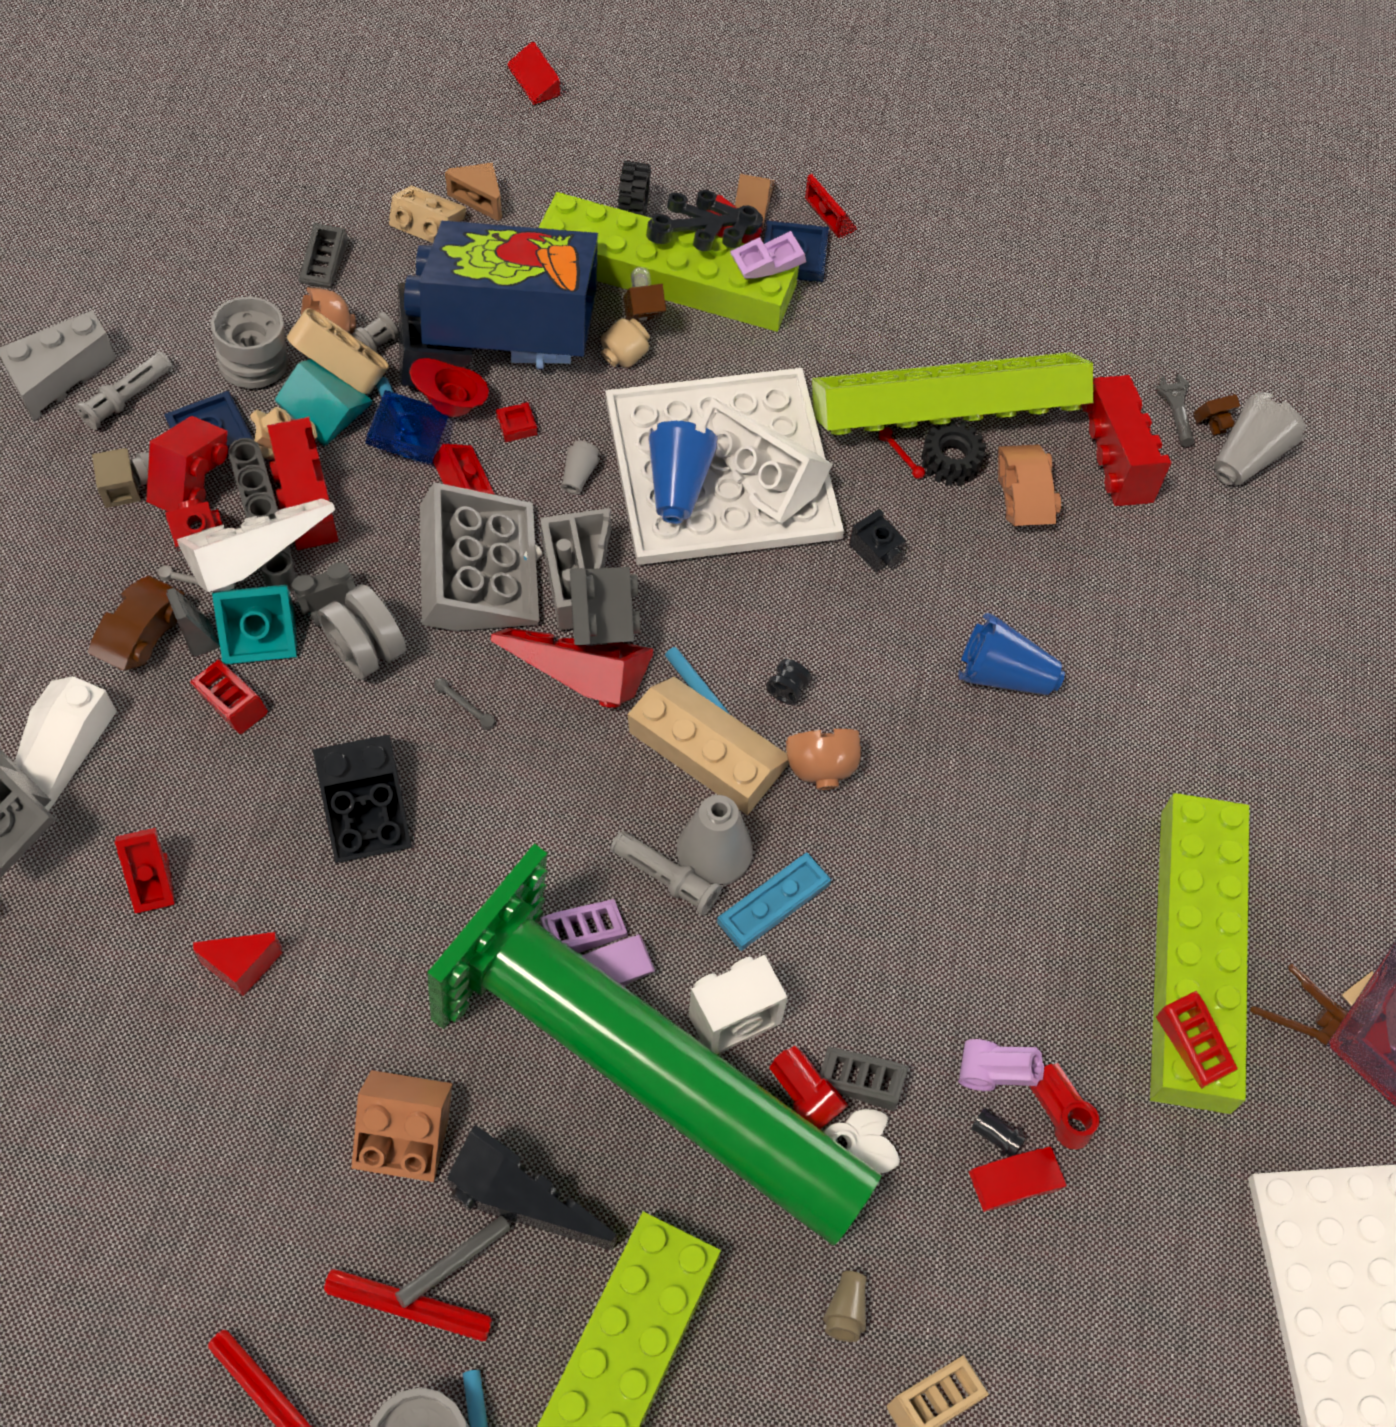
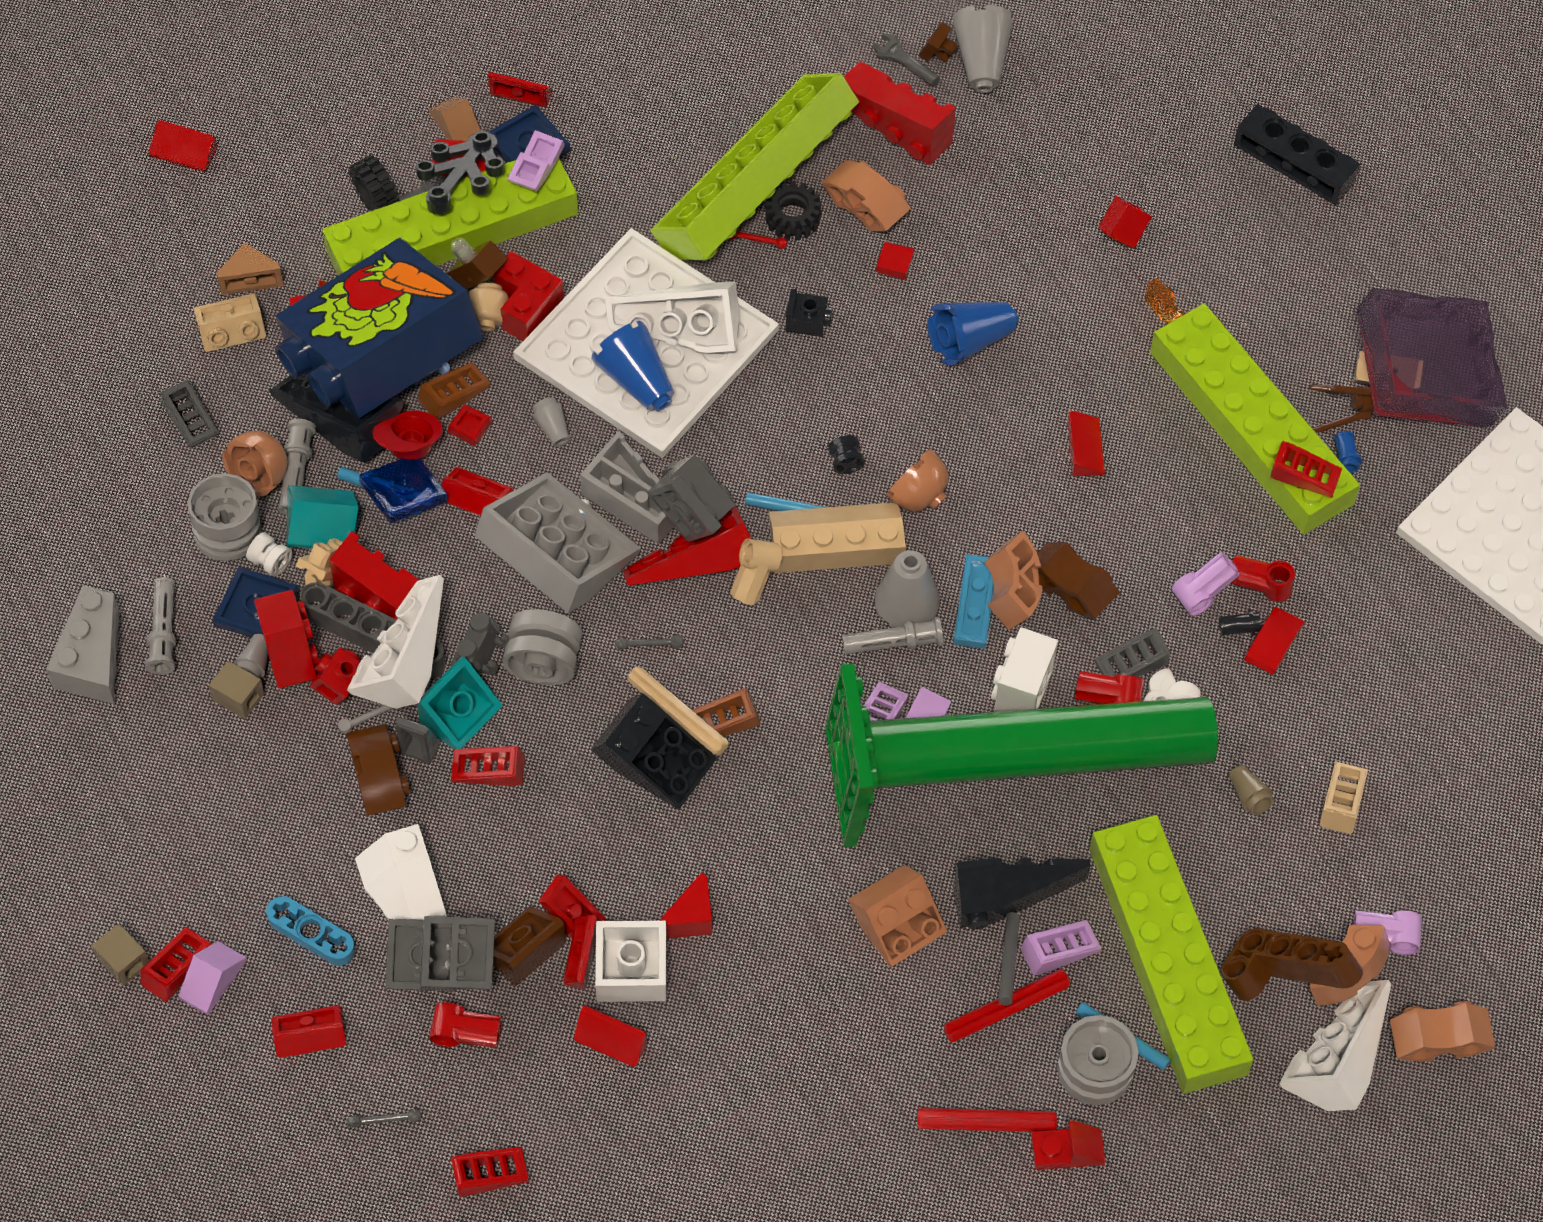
camera: 40 degrees left, 0 degrees up
(59, 1009) = (610, 1036): none -> red slope
(79, 868) = (527, 943): none -> reddish brown slope
(113, 916) = (581, 952): none -> red slope
(137, 957) = (630, 961): none -> white brick
(256, 393) = (270, 555): none -> white wheel
(337, 351) = (302, 472): tan beam -> none
(417, 779) = (678, 711): none -> tan axle
(473, 828) = (730, 702): none -> dark orange slope
(509, 1309) = (1040, 955): none -> lavender slope
(527, 374) = (439, 403): none -> dark orange slope
(605, 707) = (756, 561): none -> tan piece
(665, 357) = (531, 294): none -> red brick
(820, 912) = (1015, 580): none -> nougat brick
(877, 957) = (1079, 583): none -> reddish brown brick
(1002, 557) = (895, 260): none -> red tile
(1015, 844) = (1085, 444): none -> red slope
(1214, 773) = (1162, 301): none -> clear orange plate
(1246, 679) = (1124, 221): none -> red panel
(1263, 1065) = (1347, 451): none -> blue pin

